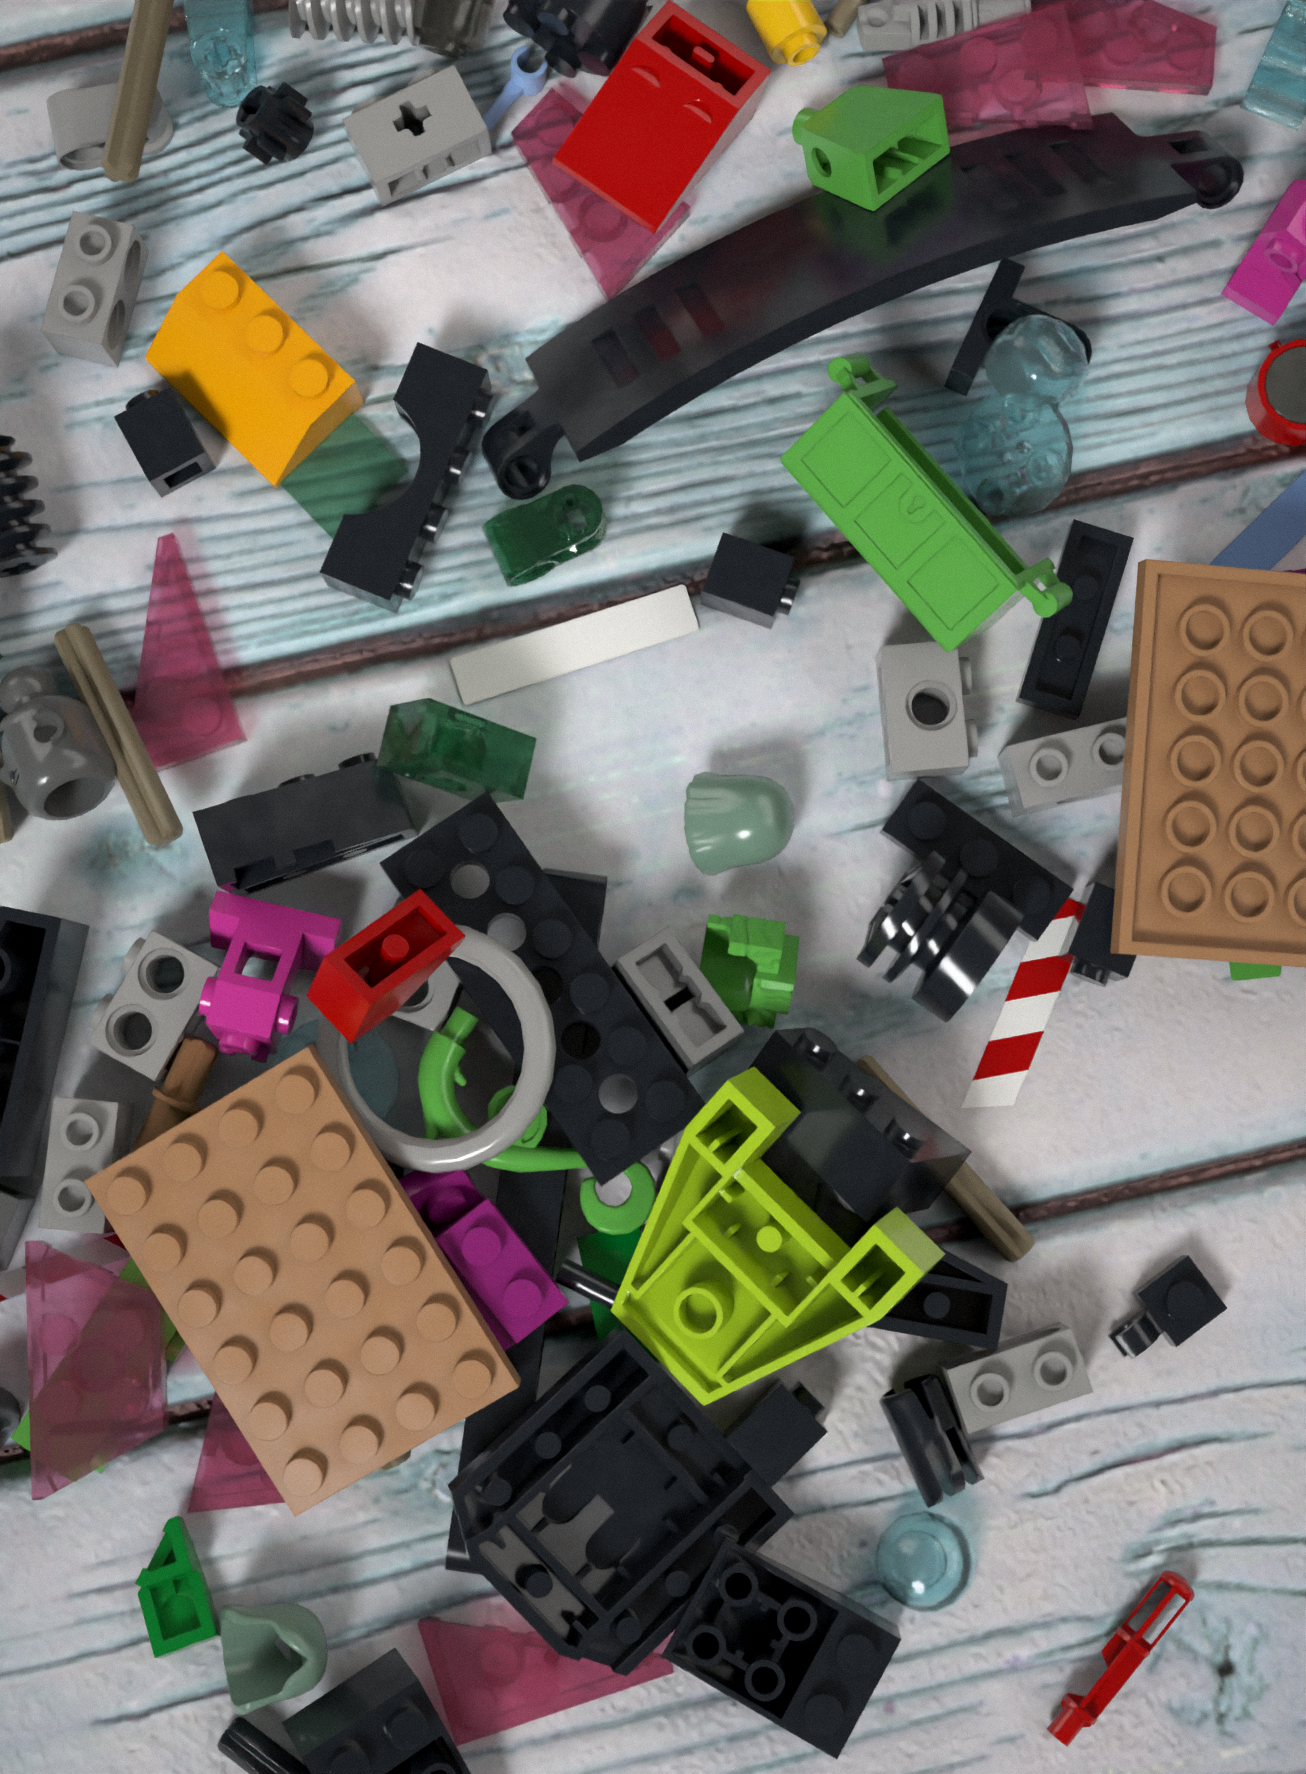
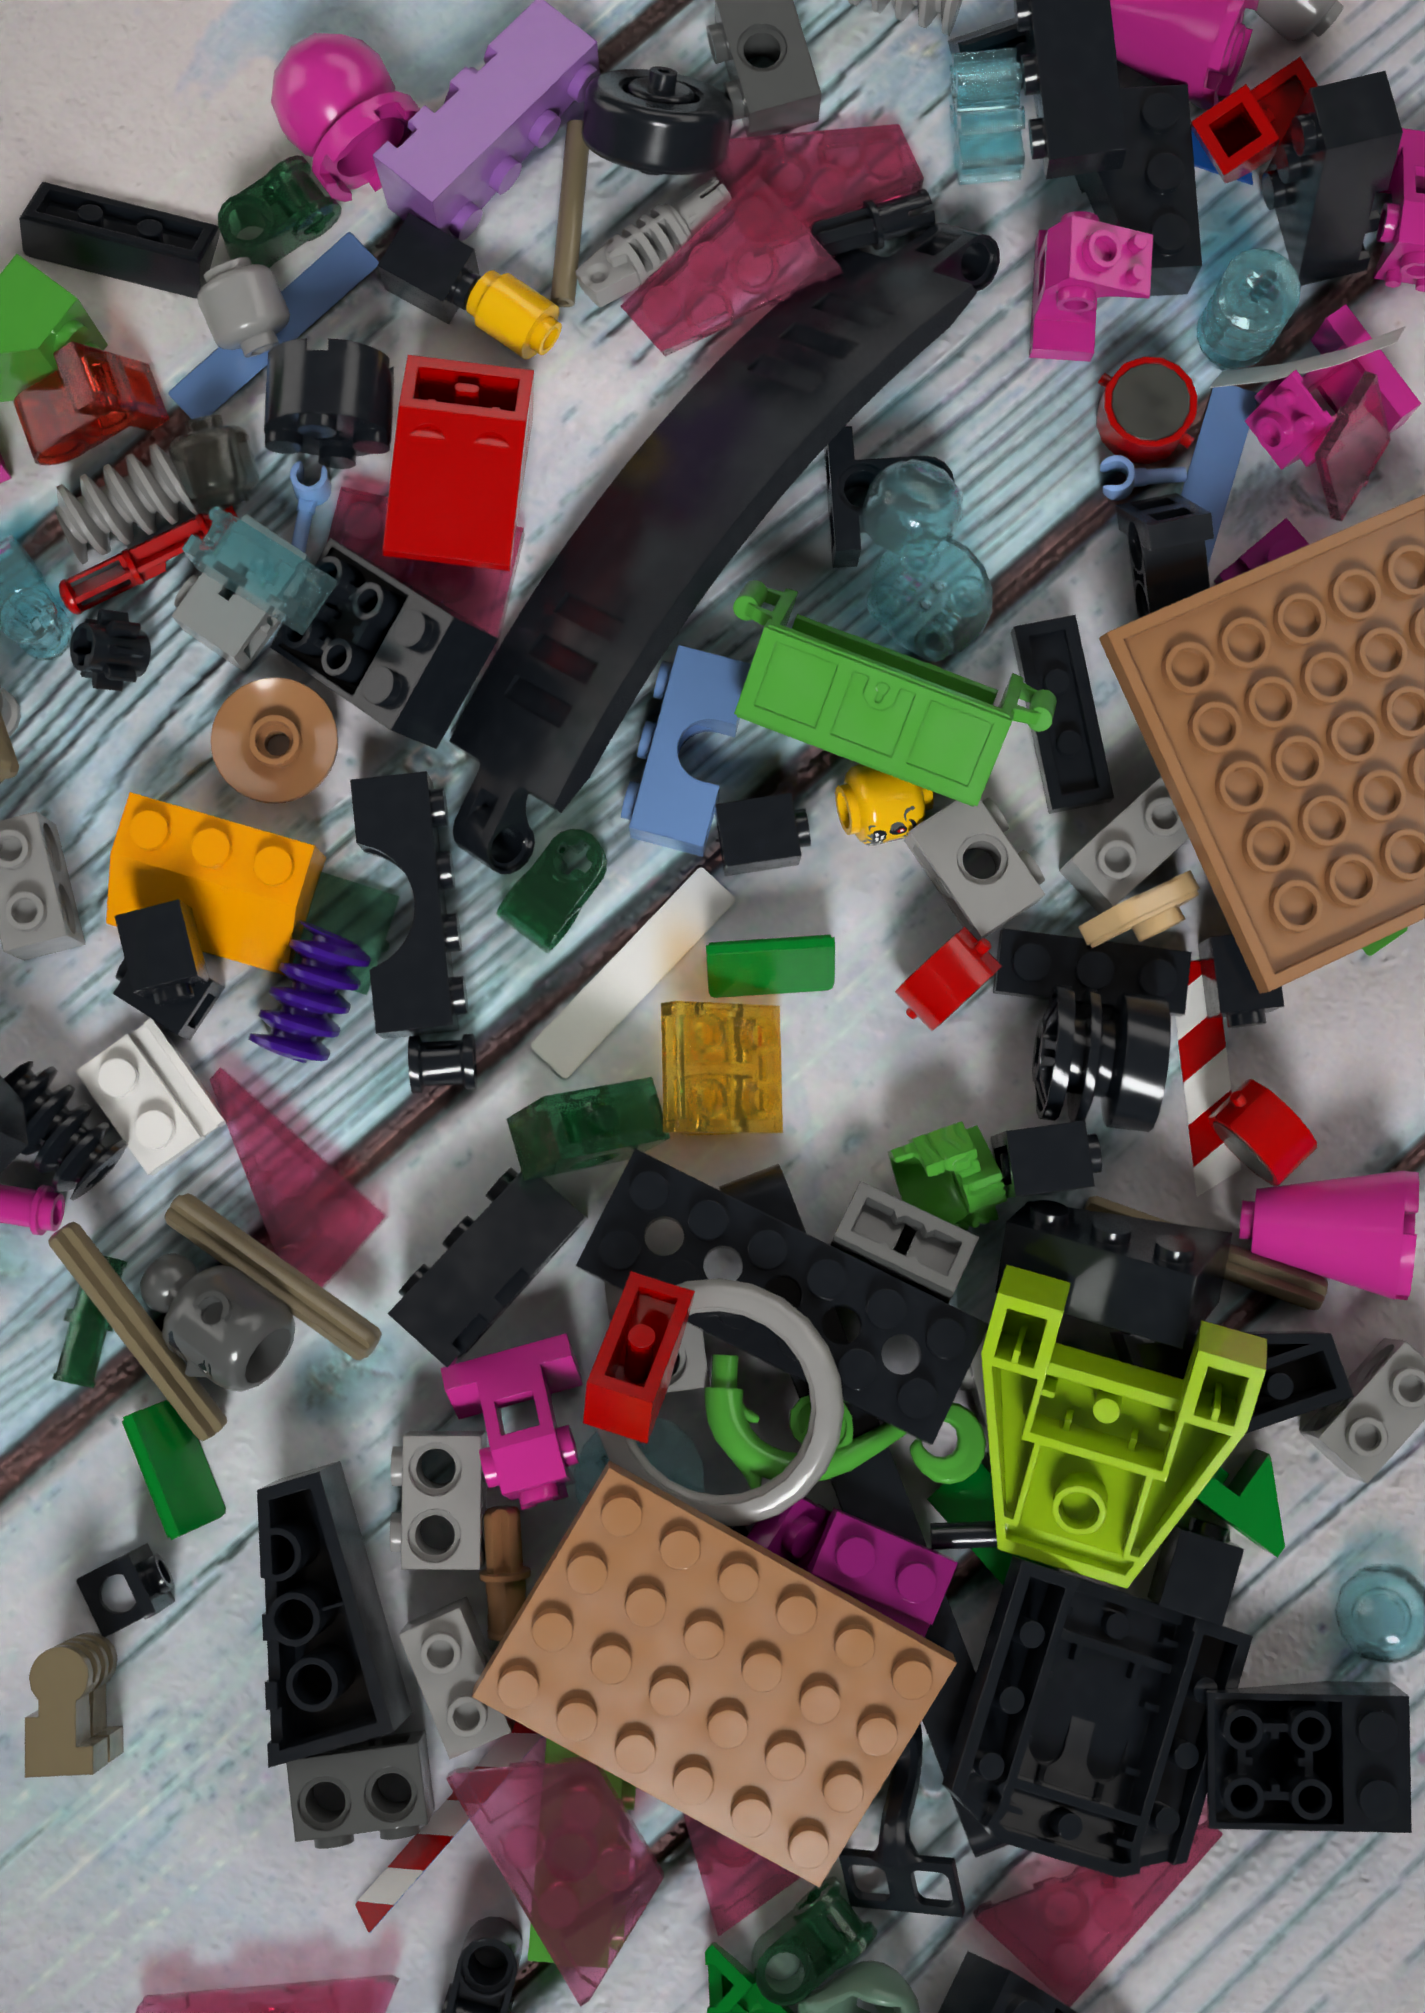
camera: 35 degrees left, 0 degrees up
(101, 527) = (151, 1096): none -> white plate
(173, 400) = (162, 952): none -> black brick
(265, 1562) = (813, 1940): none -> clear green piece
(283, 511) = (311, 996): none -> dark purple piece
(347, 63) = (136, 564): none -> red piece
(364, 631) = (442, 1063): none -> black bush
(369, 248) = (253, 718): none -> medium nougat dish
(379, 1522) = (896, 1852): none -> black piece
(438, 118) = (260, 570): none -> clear light blue hinge
(512, 243) = (388, 648): none -> black slope
(602, 765) = (721, 1068): none -> clear yellow plate
(682, 510) = (697, 697): none -> medium blue arch
(695, 701) = (770, 966): none -> green slope
(735, 821) = (865, 1052): sand green hair -> none
(841, 996) = (1047, 1158): none -> black brick
(844, 794) = (948, 978): none -> red piece
(854, 1397) = (1248, 1502): none -> green slope
(868, 612) = (880, 805): none -> yellow head
(872, 142) = (655, 387): bright green torso -> none
(930, 1438) = (1333, 1503): black arm -> none
(1048, 1079) = (1262, 1132): none -> red piece
(1049, 829) = (1144, 913): none -> tan piece
(1069, 1201) = (1341, 1229): none -> dark pink cone
(1144, 102) = (873, 224): none -> black axle
(1247, 519) = (1166, 549): none -> black tile
(1257, 448) = (1137, 476): none -> light blue hand

